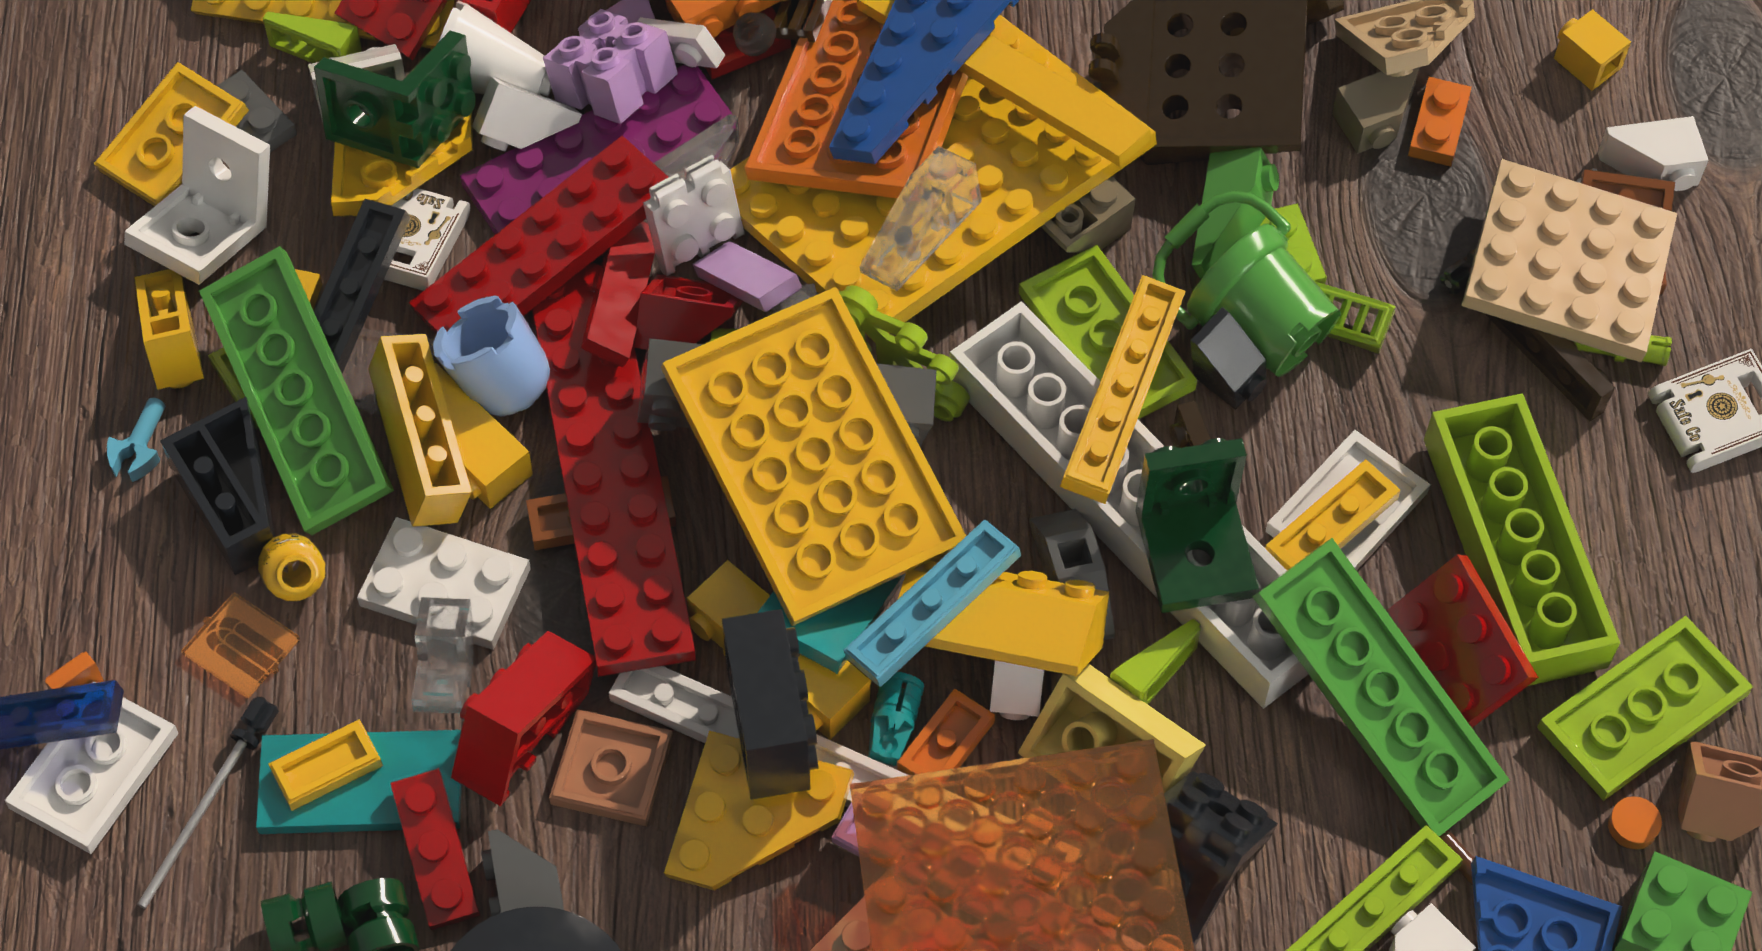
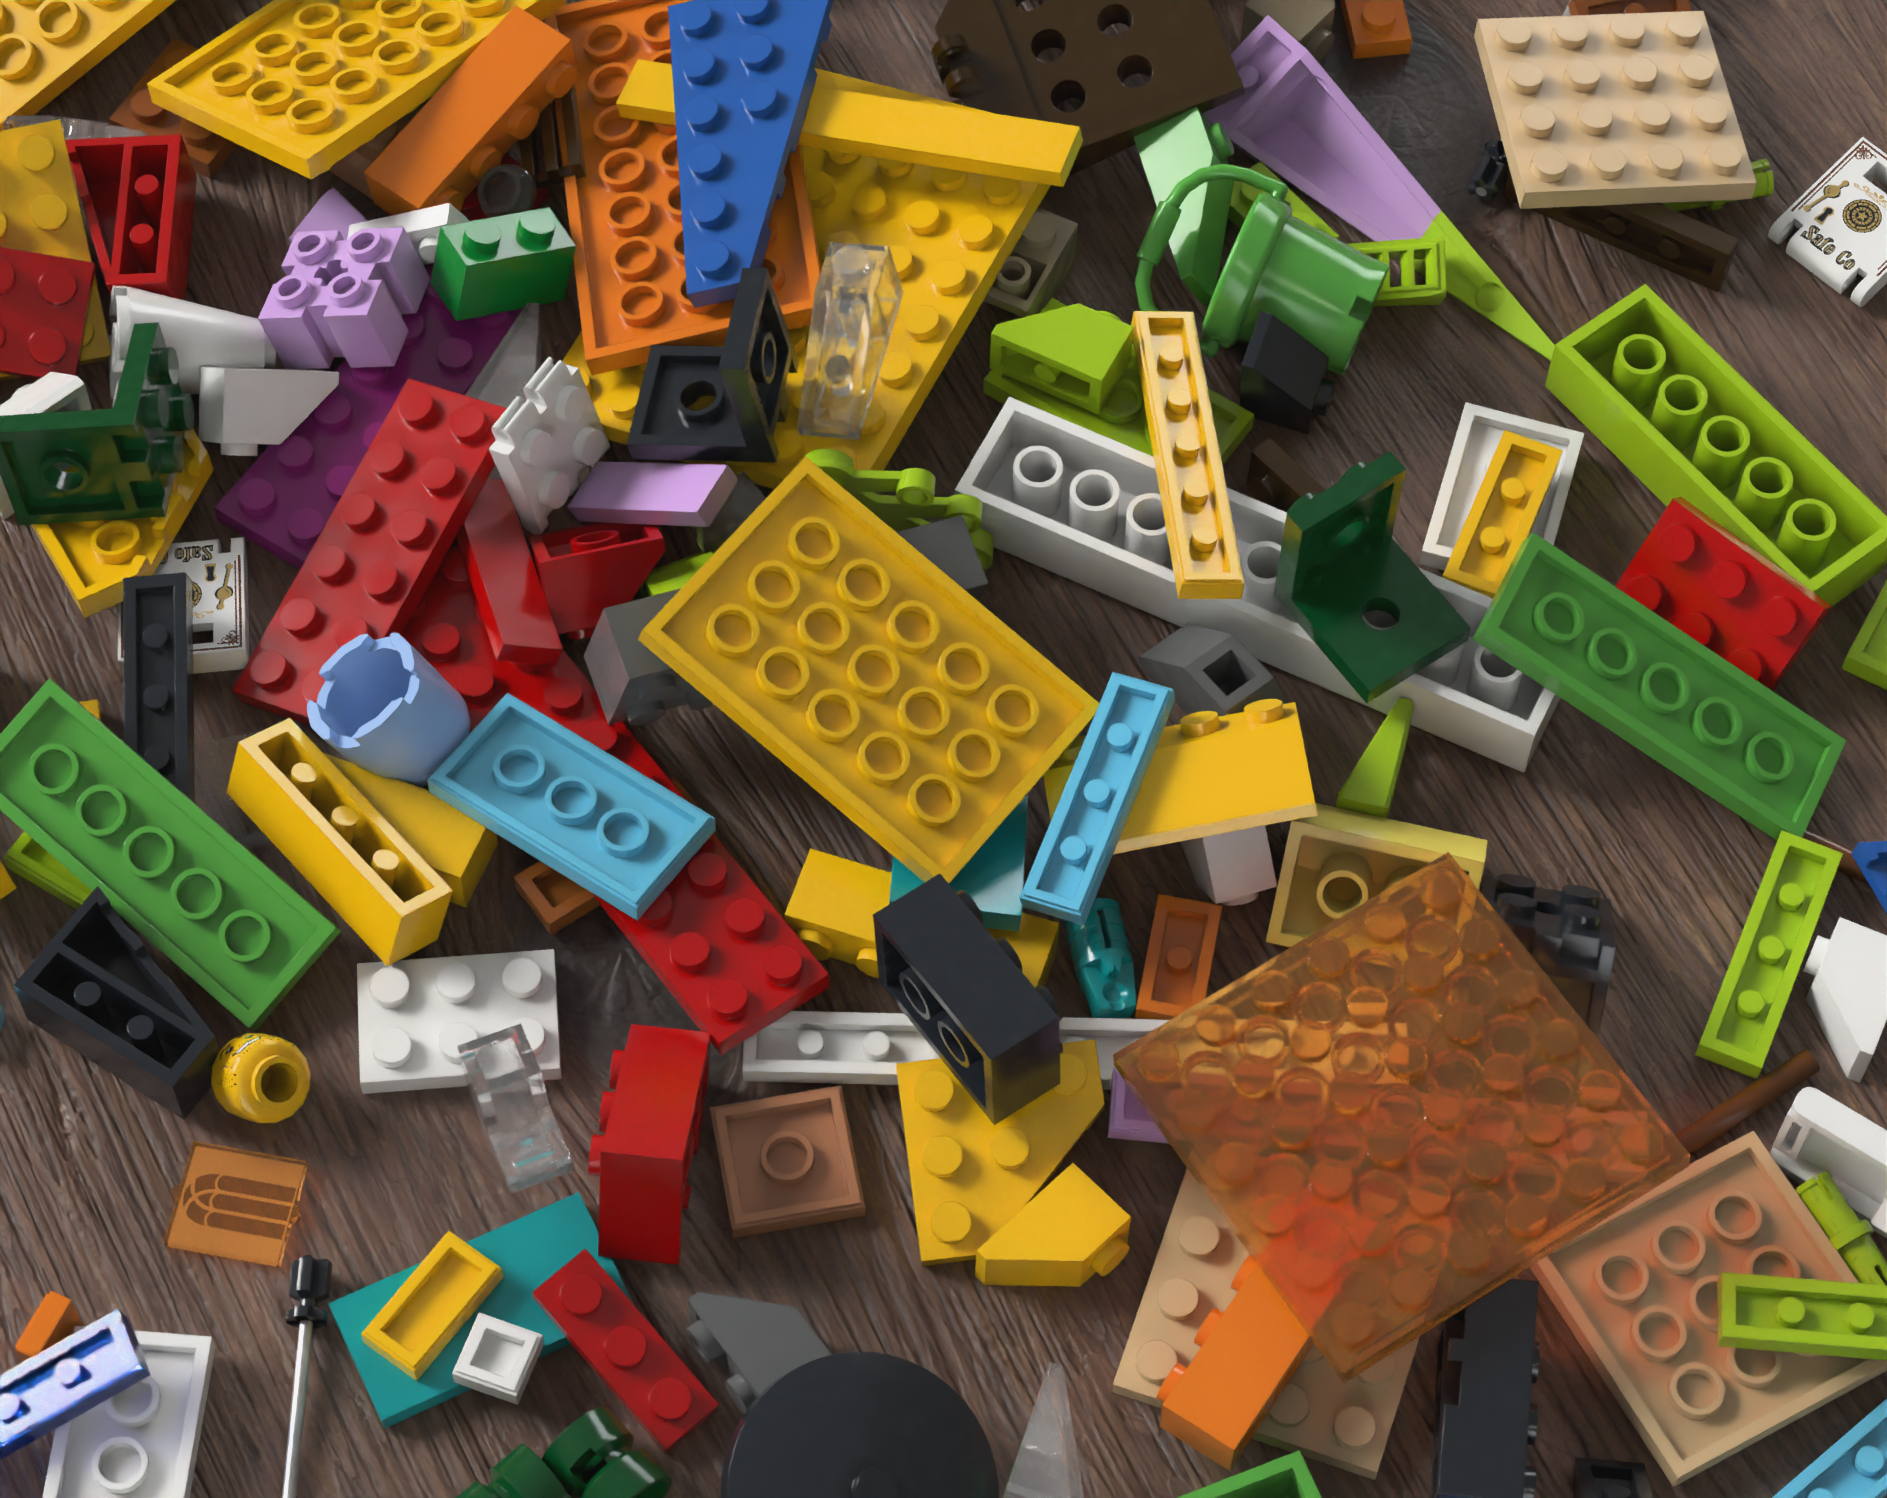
camera: 25 degrees left, 0 degrees up
(349, 818) = (498, 1358): none -> white tile
(582, 467) = (572, 806): none -> medium azure tile
(726, 80) = (502, 263): none -> green brick
(761, 895) = (1057, 1237): none -> yellow slope
(832, 210) = (742, 375): none -> black bracket
(1081, 286) = (1065, 353): none -> lime slope
(1346, 206) = (1329, 152): none -> lavender plate

